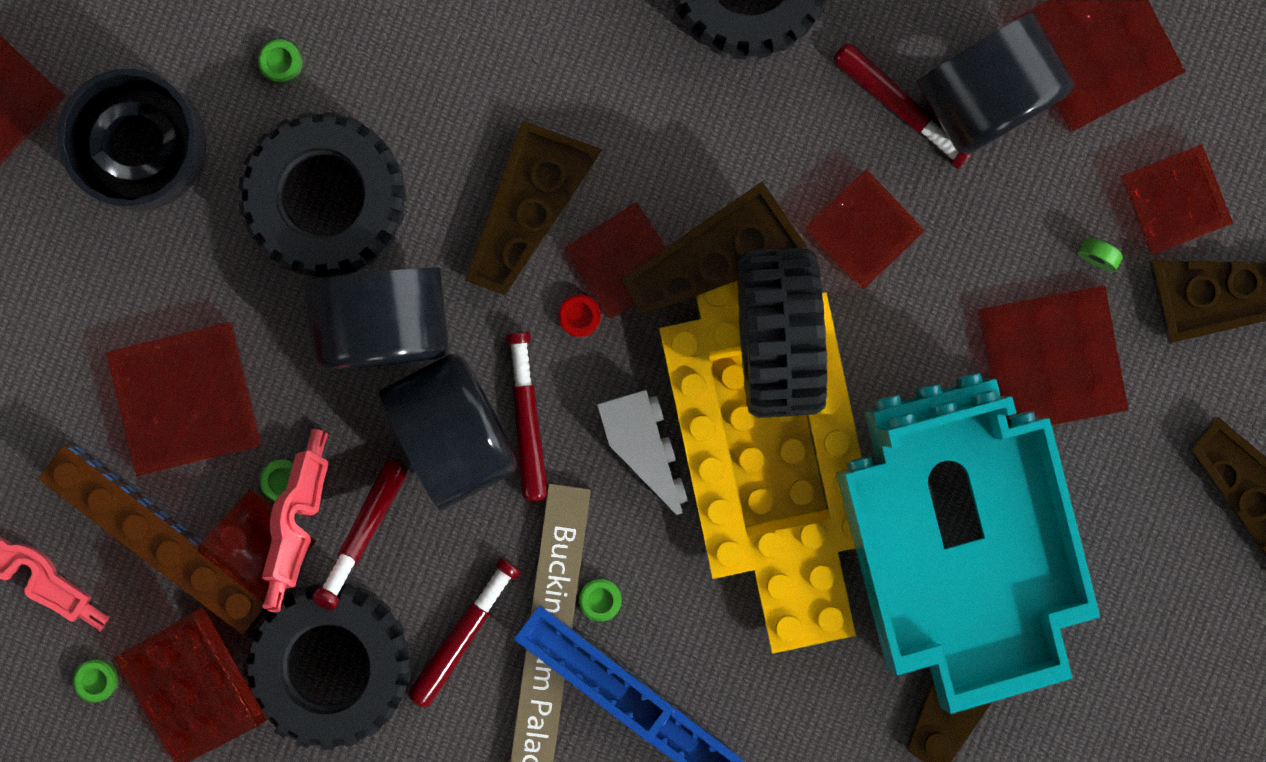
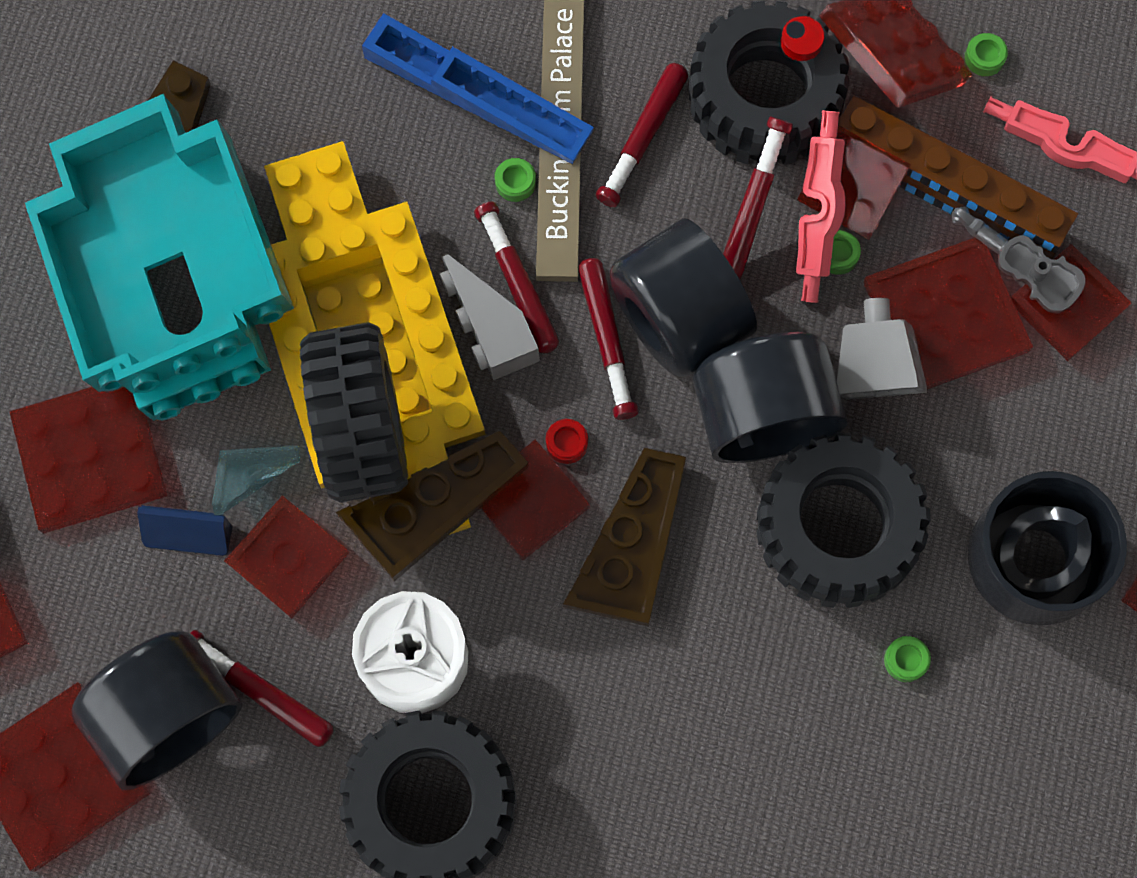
camera: 175 degrees right, 15 degrees down
(60, 396) = (1086, 318): none -> clear red plate
(76, 413) = (1052, 282): none -> flat silver piece
(260, 356) = (879, 356): none -> light grey torso
(288, 693) = (802, 38): none -> red tile
(608, 484) = (518, 279): none -> dark red piece
(776, 98) = (384, 642): none -> white piece
(897, 318) = (247, 470): none -> clear light blue tile
(961, 267) = (184, 530): none -> dark blue slope
(1100, 254) = (43, 559): bright green tile -> none

